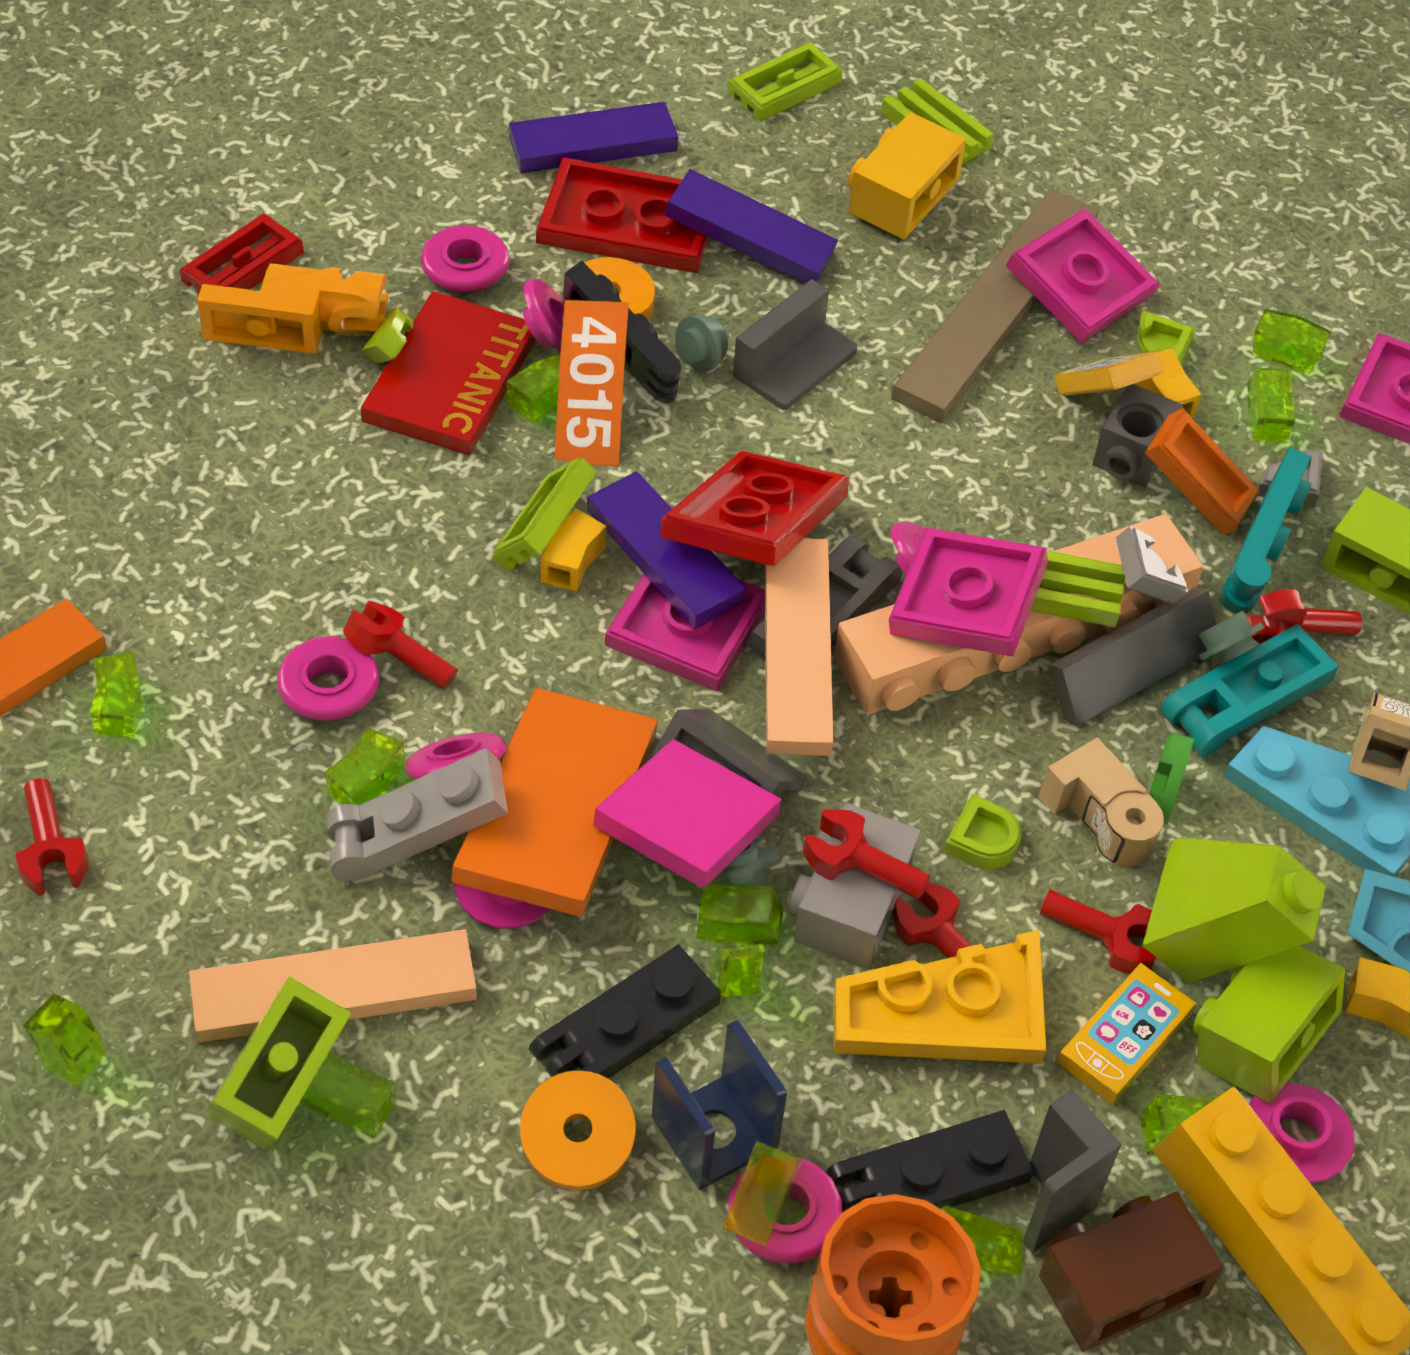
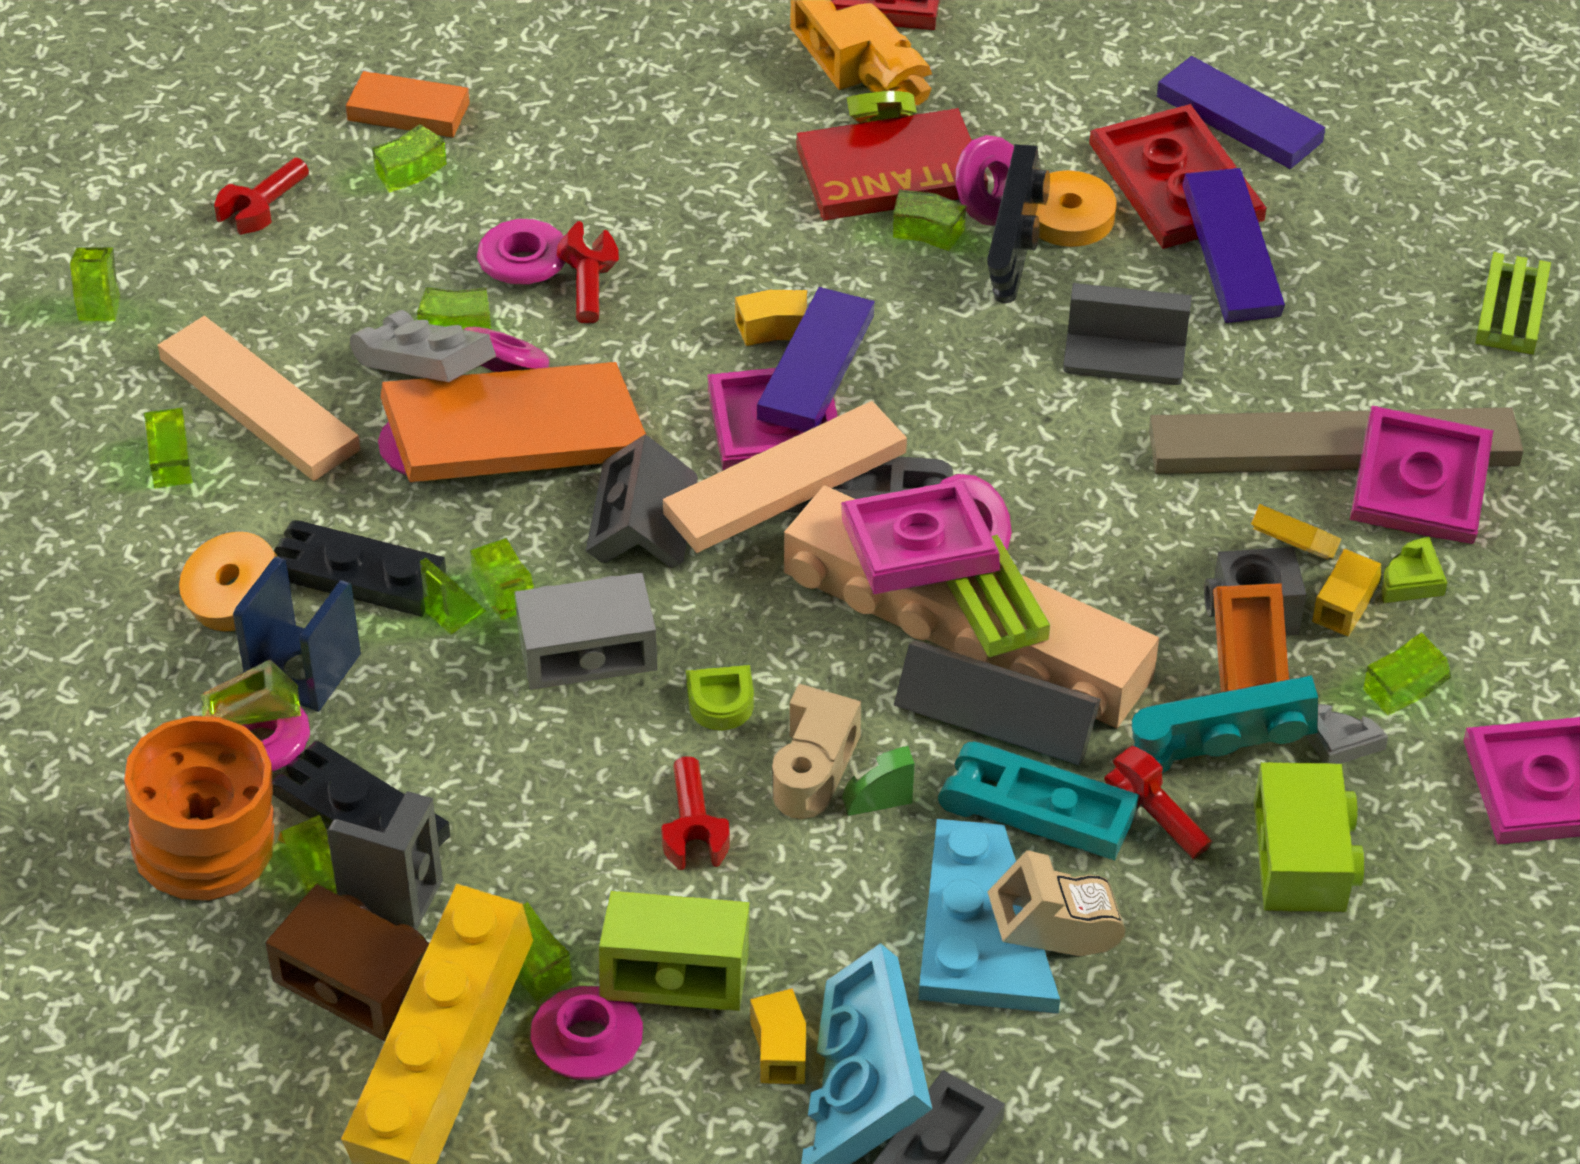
camera: 60 degrees right, 5 degrees down
(278, 1063) = (145, 377): lime brick -> none
(463, 242) = (998, 97): dark pink piece -> none
(543, 513) = (798, 275): lime tile -> none
(591, 382) = (943, 231): orange sticker -> none
(687, 813) = (550, 488): dark pink tile -> none
(701, 342) = (1065, 273): sand green plate -> none
(749, 867) = (549, 554): sand green plate -> none
(755, 508) = (902, 383): red tile -> none
(790, 85) = (1447, 194): lime tile -> none
(857, 853) = (588, 596): red bar -> none
(906, 175) = (1397, 300): yellow brick -> none
(934, 930) = (598, 713): red bar -> none
(952, 1008) = (521, 748): yellow wing -> none
(1126, 1033) = (586, 870): tile -> none
(1145, 568) = (1062, 640): light grey tile -> none
(1229, 638) = (1066, 746): sand green plate -> none
(1230, 906) = (747, 851): lime slope -> none
(1289, 340) = (1506, 654): clear neon green piece -> none

